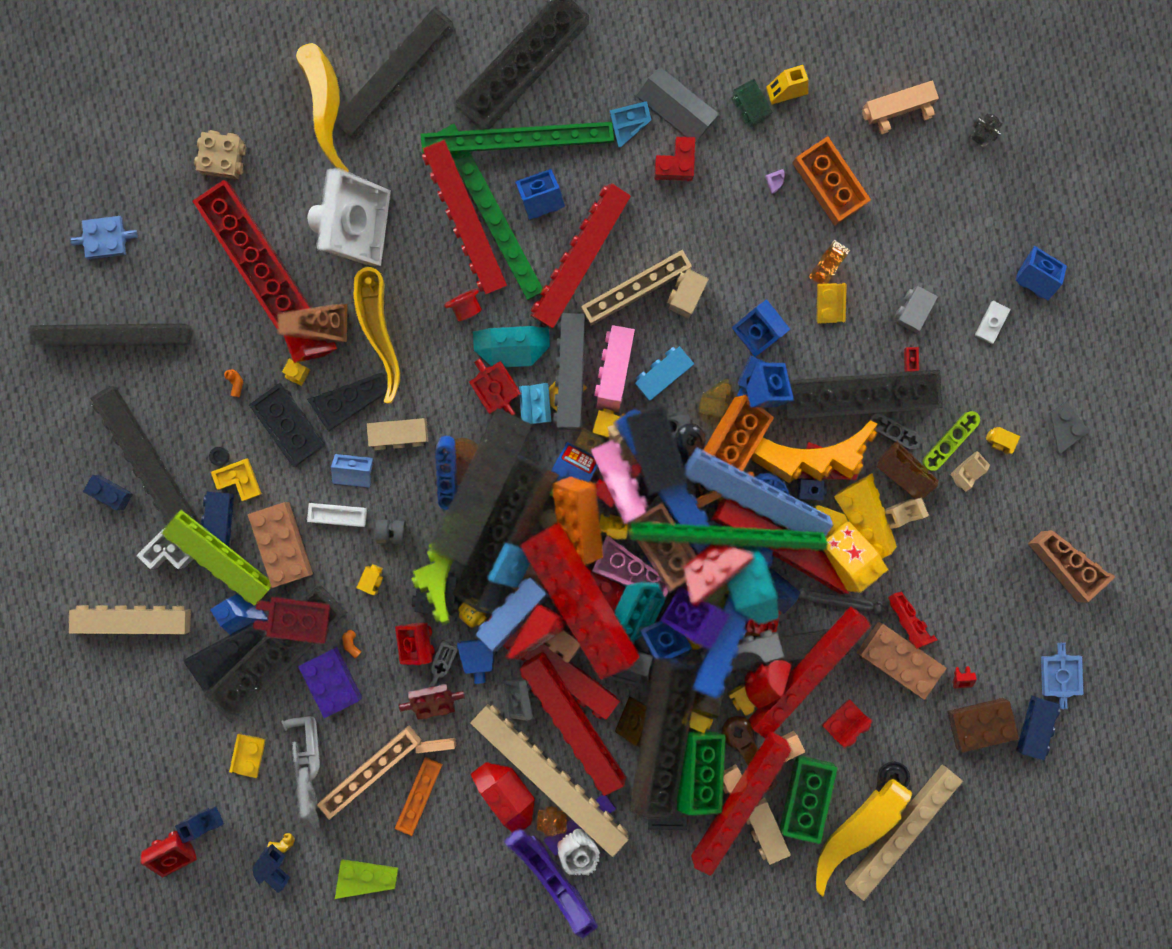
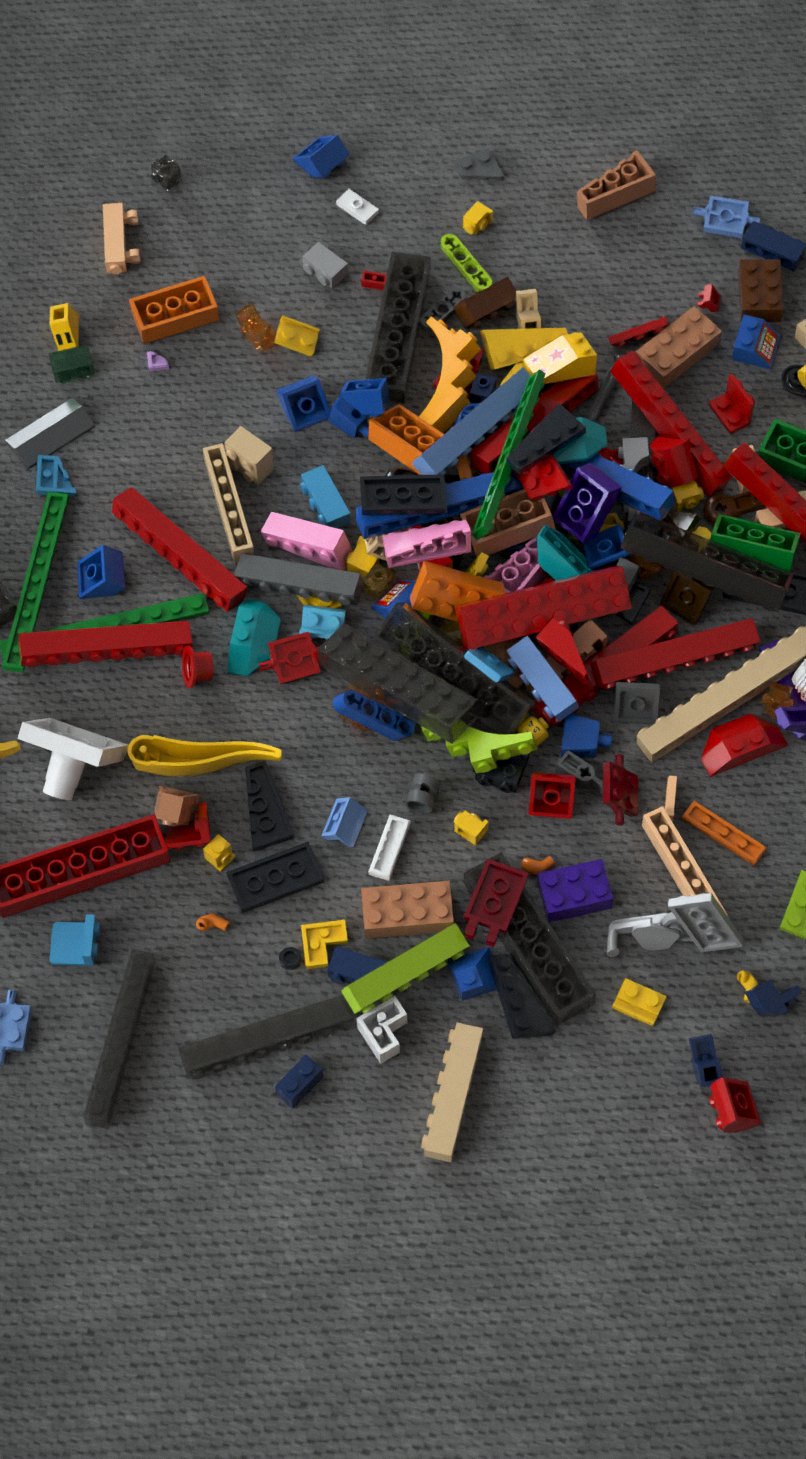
camera: 80 degrees left, 25 degrees down
(188, 273) = (75, 942): none -> dark azure bracket
(397, 433) = (316, 765): tan brick -> none
(679, 166) = (112, 439): red brick -> none
(713, 400) = (366, 458): clear yellow slope -> none
(742, 572) = (548, 437): none -> black wing
(924, 730) = (756, 342): none -> blue slope
(969, 471) = (500, 252): tan brick -> none

